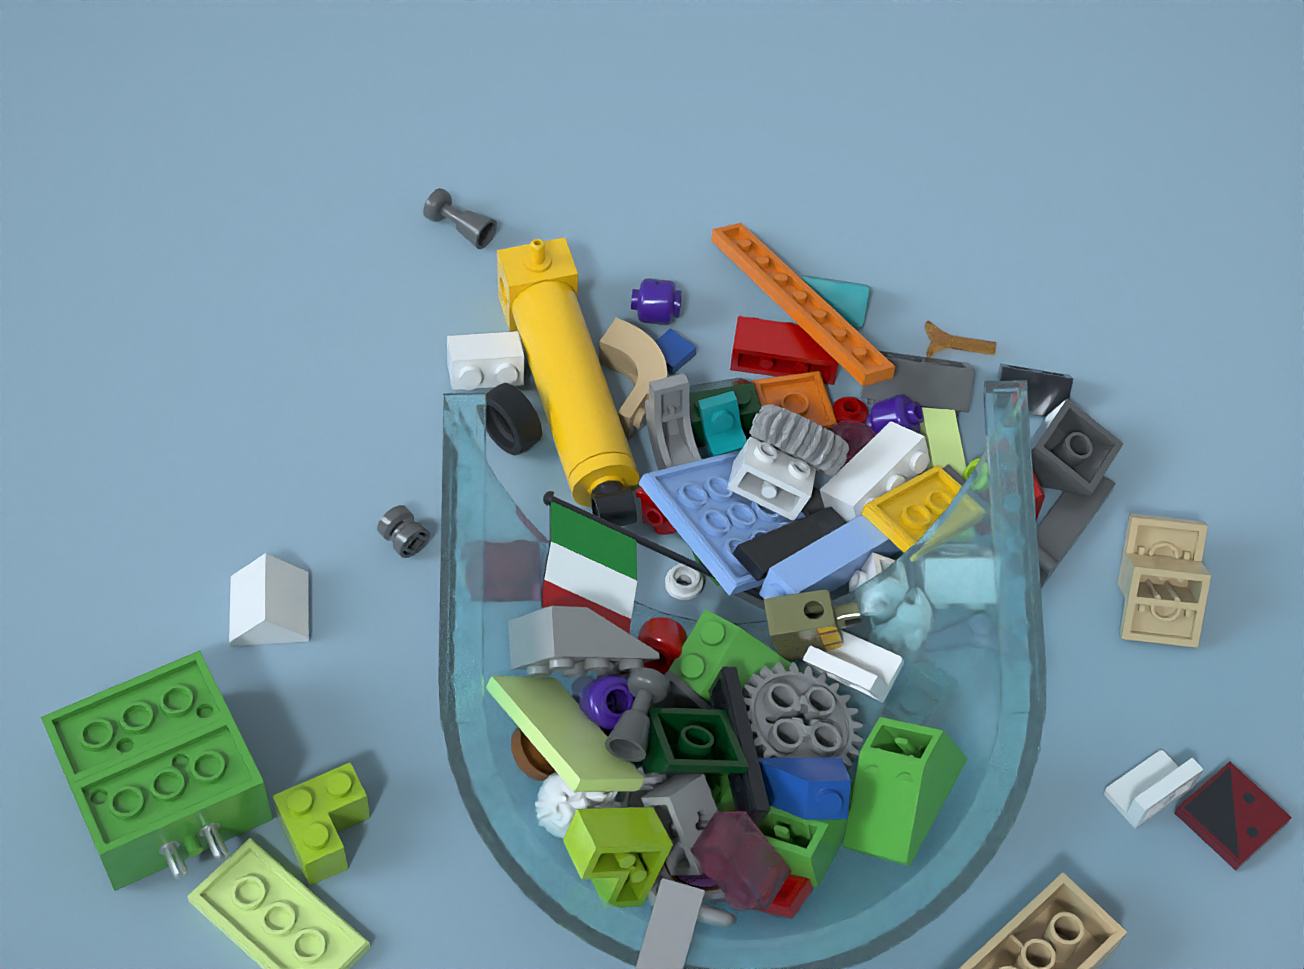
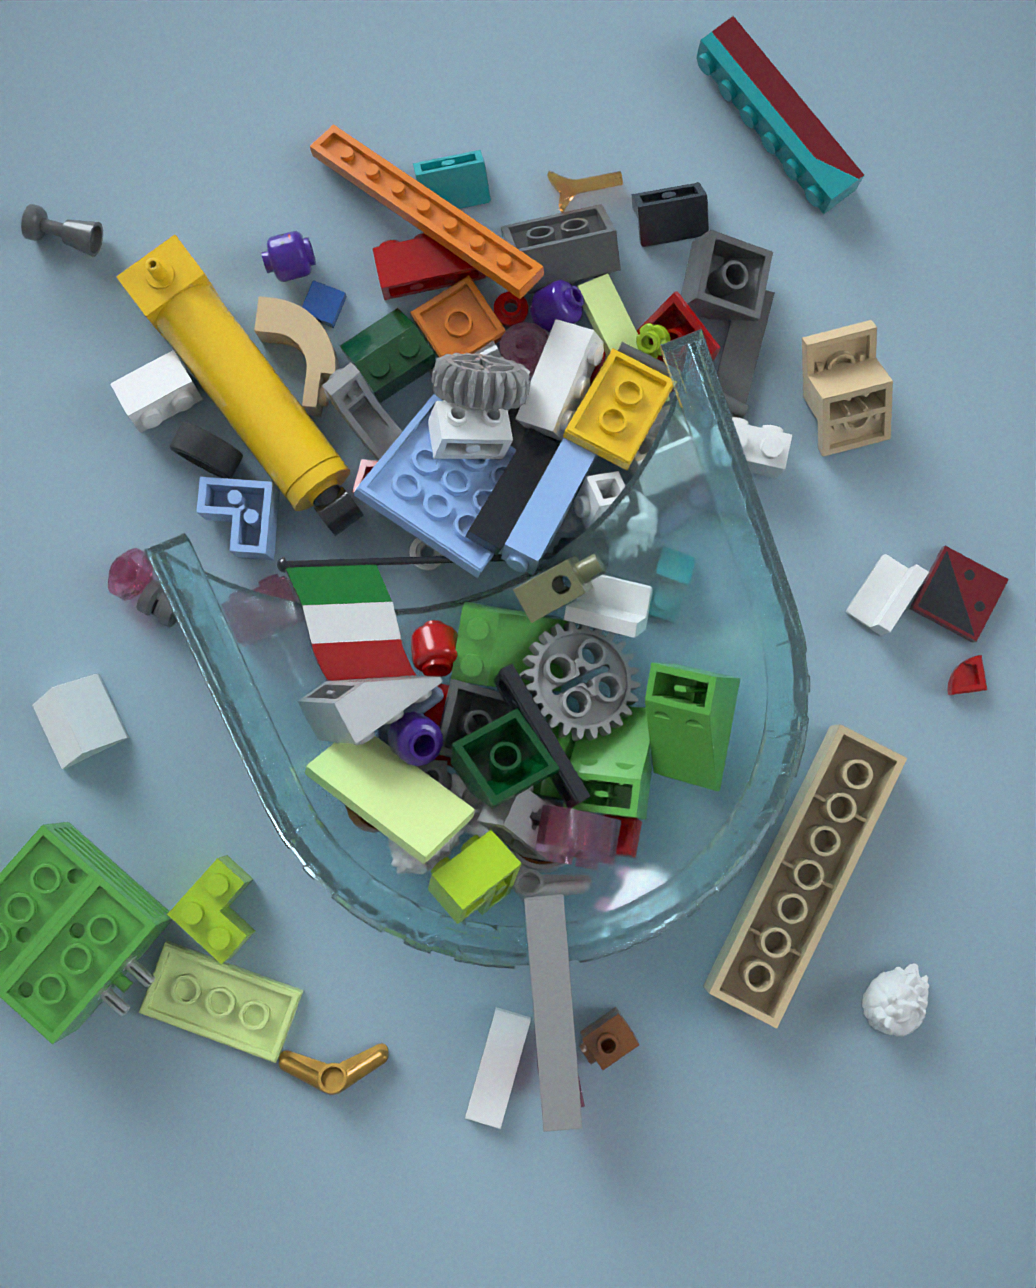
camera: 15 degrees left, 30 degrees up
(385, 494) = (130, 574): none -> clear pink plate
(524, 472) = (251, 509): none -> light blue brick
(631, 732) = (448, 773): dark grey piece -> none
(721, 424) = (405, 387): teal slope -> none
(807, 786) = (610, 748): blue slope -> none
(1062, 605) = (764, 447): none -> white brick
(1165, 349) = (778, 115): none -> brick
(1221, 901) = (968, 677): none -> red tile

